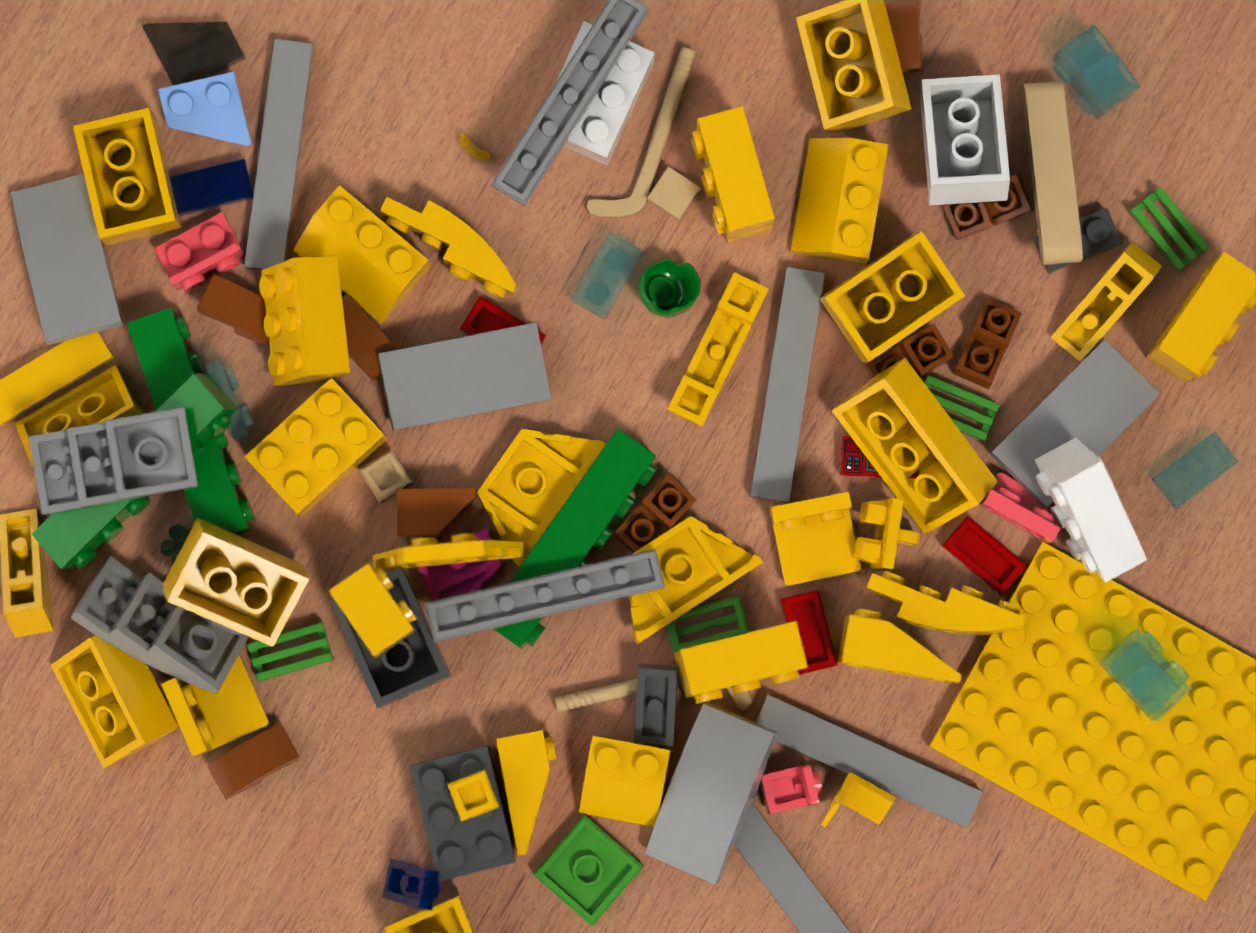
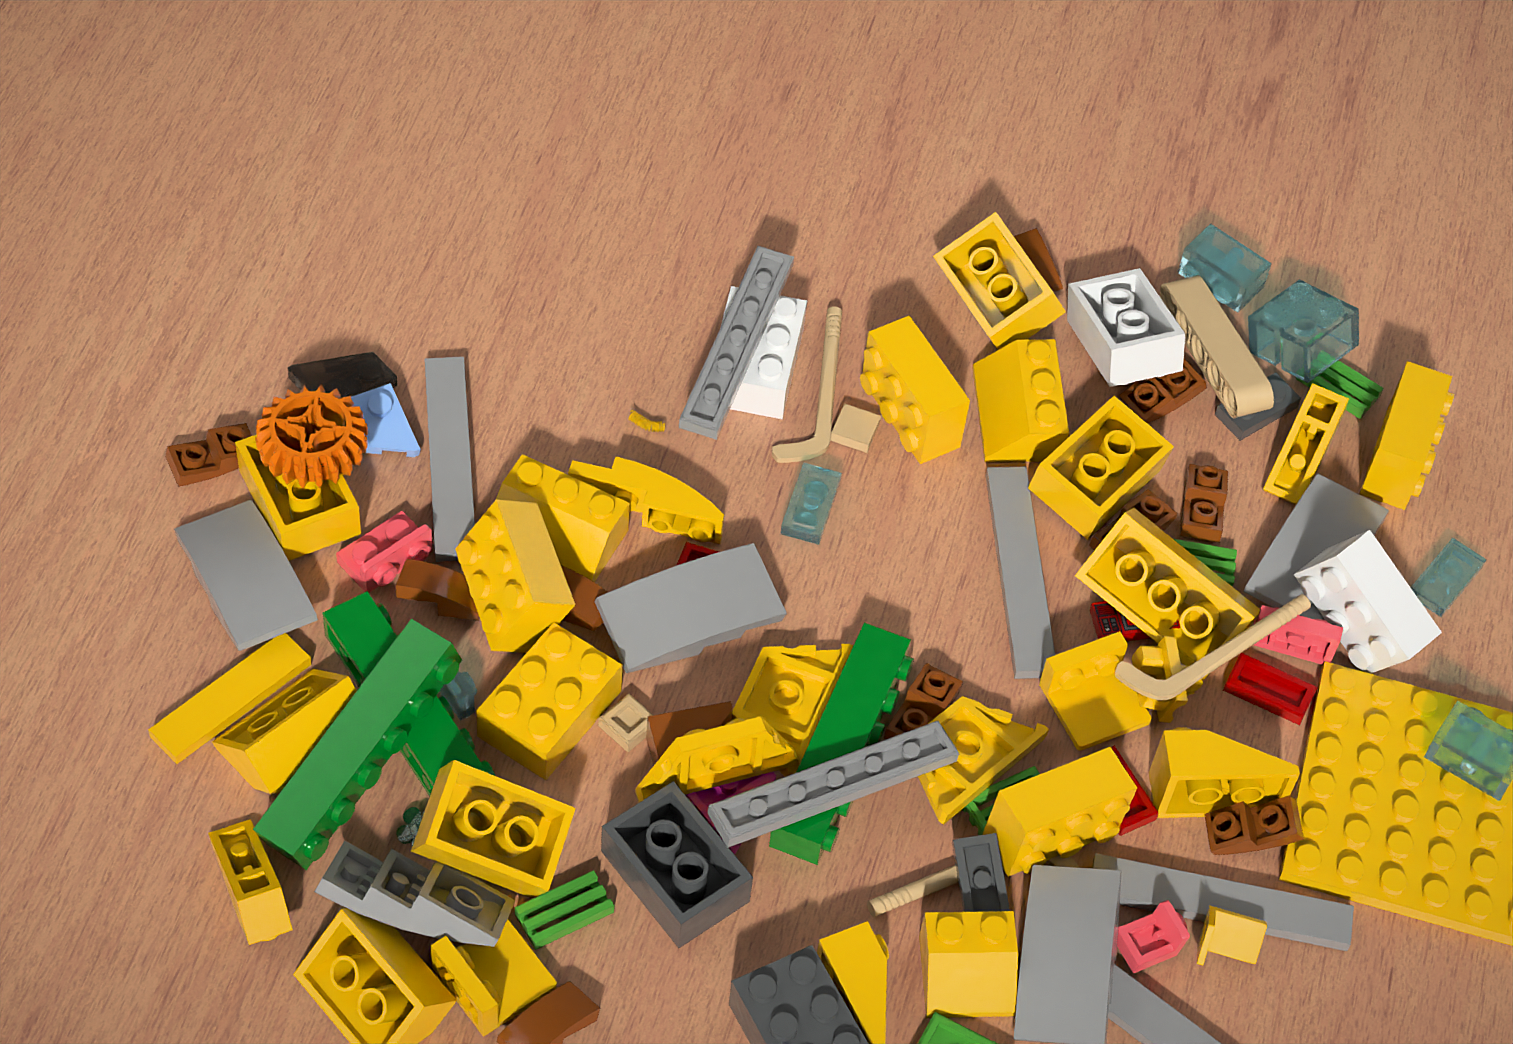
camera: 20 degrees left, 30 degrees down
(56, 112) = (206, 458): none -> dark orange slope
(113, 461) = (337, 721): light grey slope -> none
(136, 159) = (311, 436): none -> orange gear
(212, 187) = (390, 493): clear blue plate -> none
(373, 610) = (655, 817): yellow brick -> none
(473, 795) = (812, 989): yellow tile -> none
(669, 287) = (877, 501): green hair -> none
(718, 349) = (943, 544): yellow slope -> none
(890, 552) = (1182, 680): none -> tan piece
(918, 697) = (1252, 829): none -> dark orange slope
(961, 613) = (1273, 728): yellow slope -> none
(1151, 171) = (1309, 325): none -> clear light blue piece

